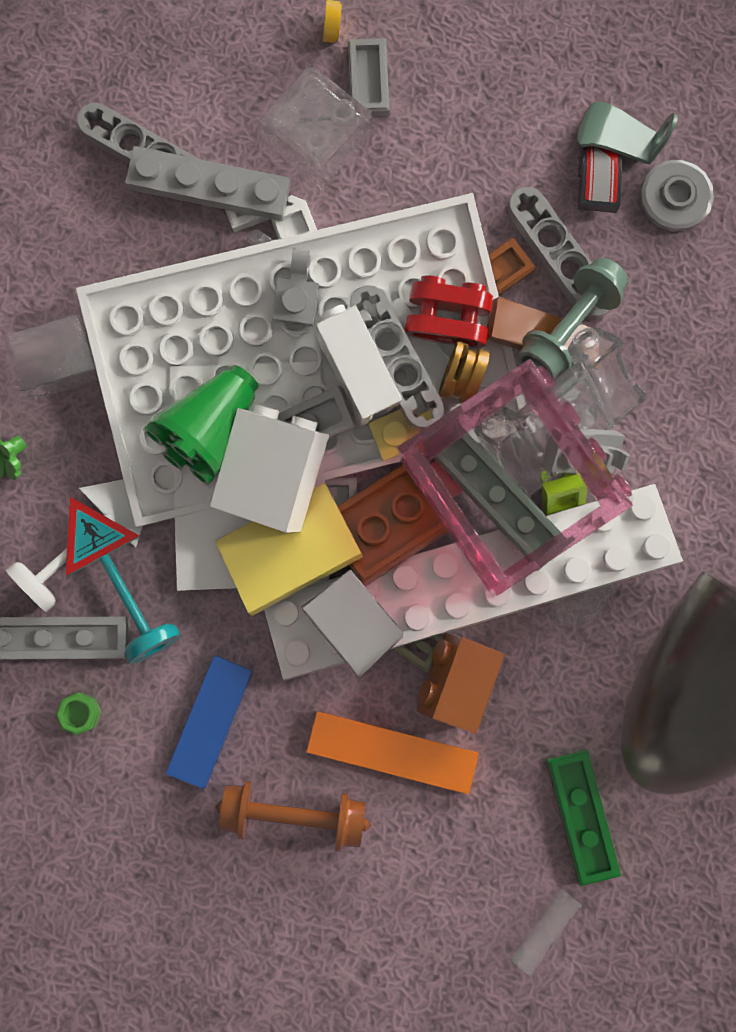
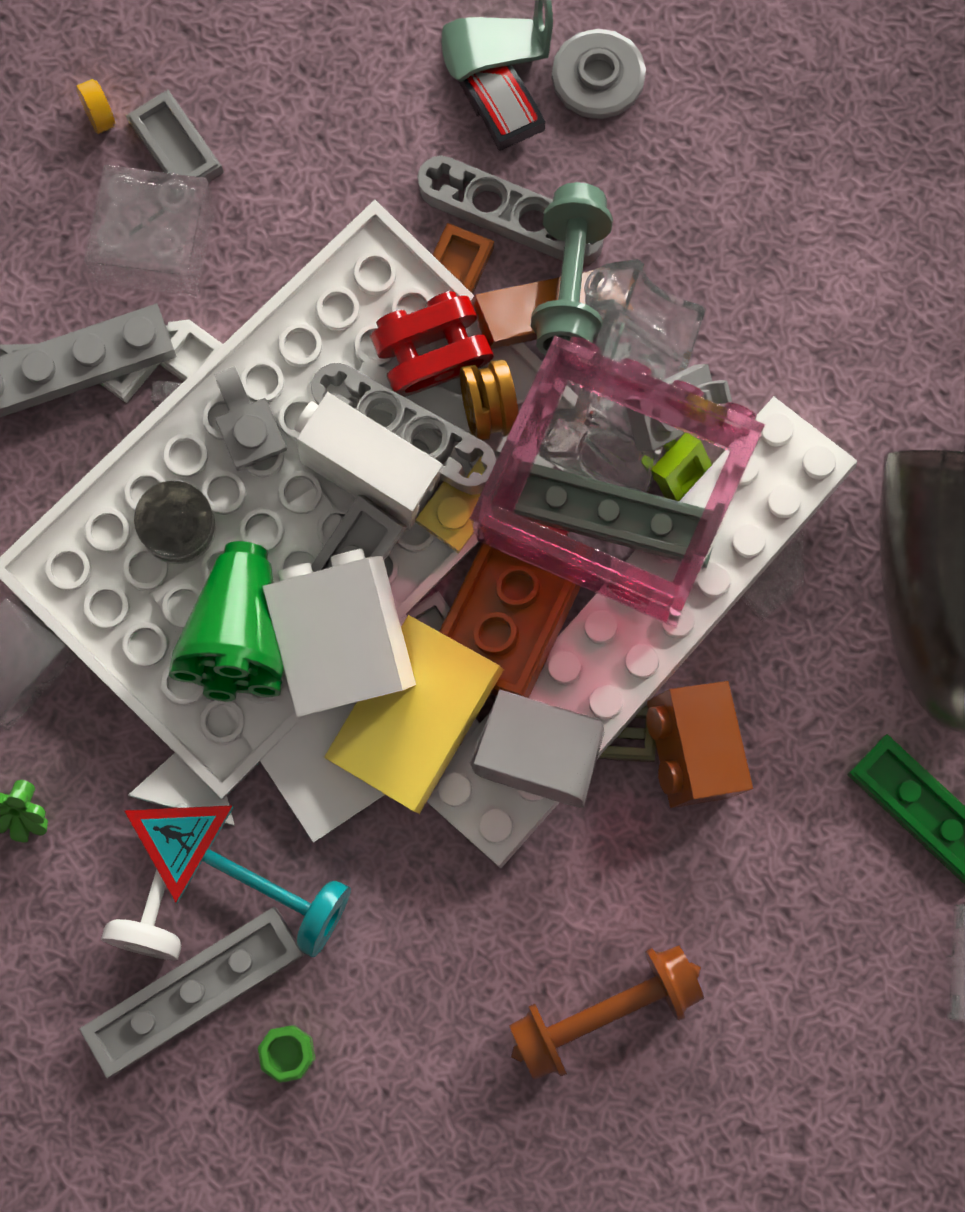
camera: 25 degrees left, 5 degrees down
(209, 722) = (444, 969): blue tile -> none
(210, 330) = (175, 522): none -> clear smoke wheel
(393, 752) = (672, 872): orange tile -> none

